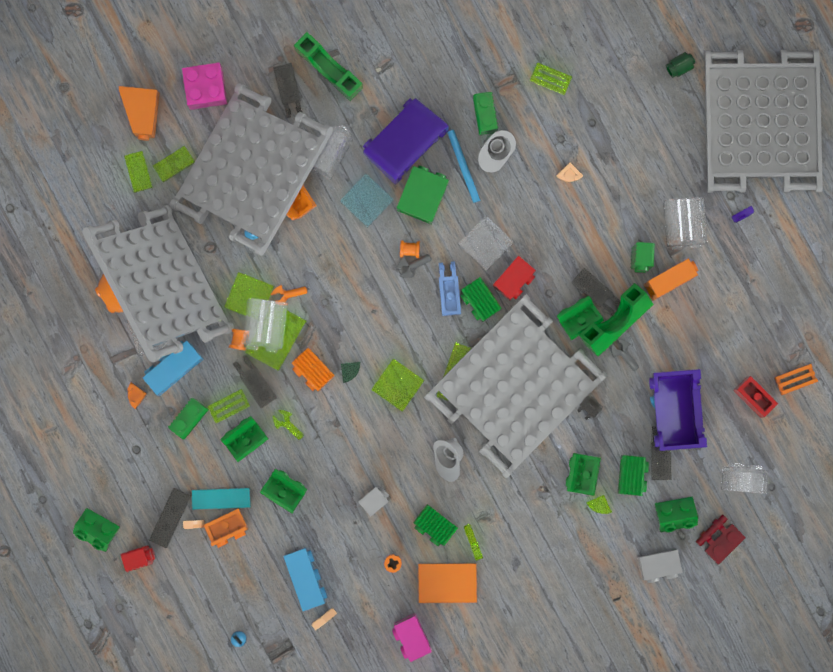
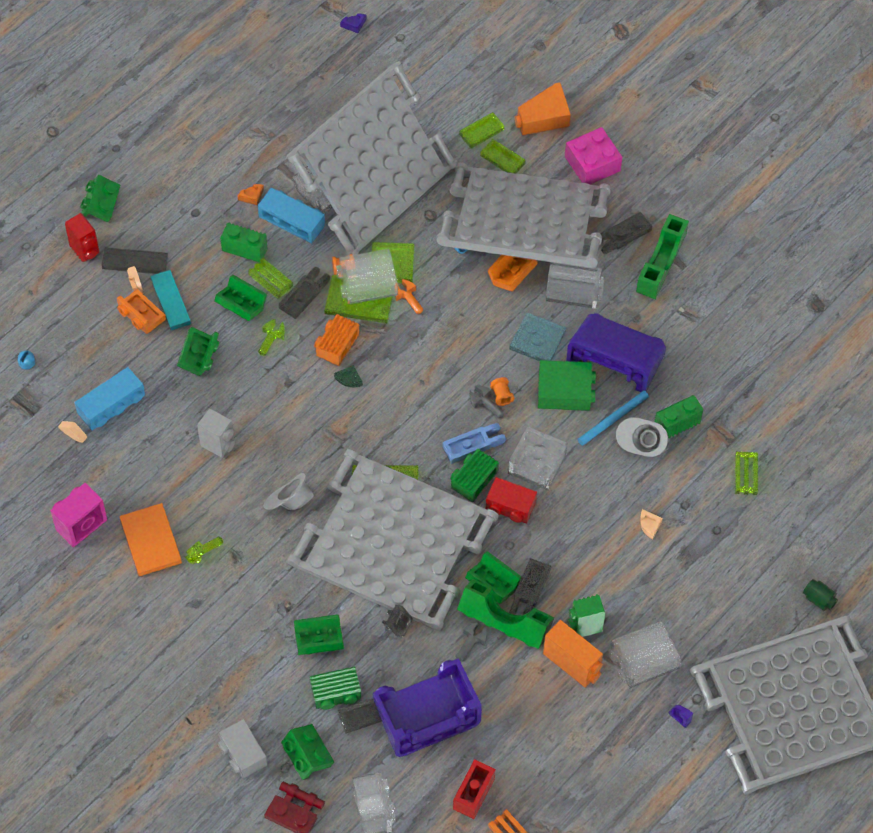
camera: 70 degrees right, 25 degrees down
(387, 561) = (154, 476): orange bush -> none
(397, 385) = (351, 426): clear neon green tile -> none
(435, 526) = (209, 505): green brick -> none
(599, 505) = (290, 668): clear neon green tile -> none

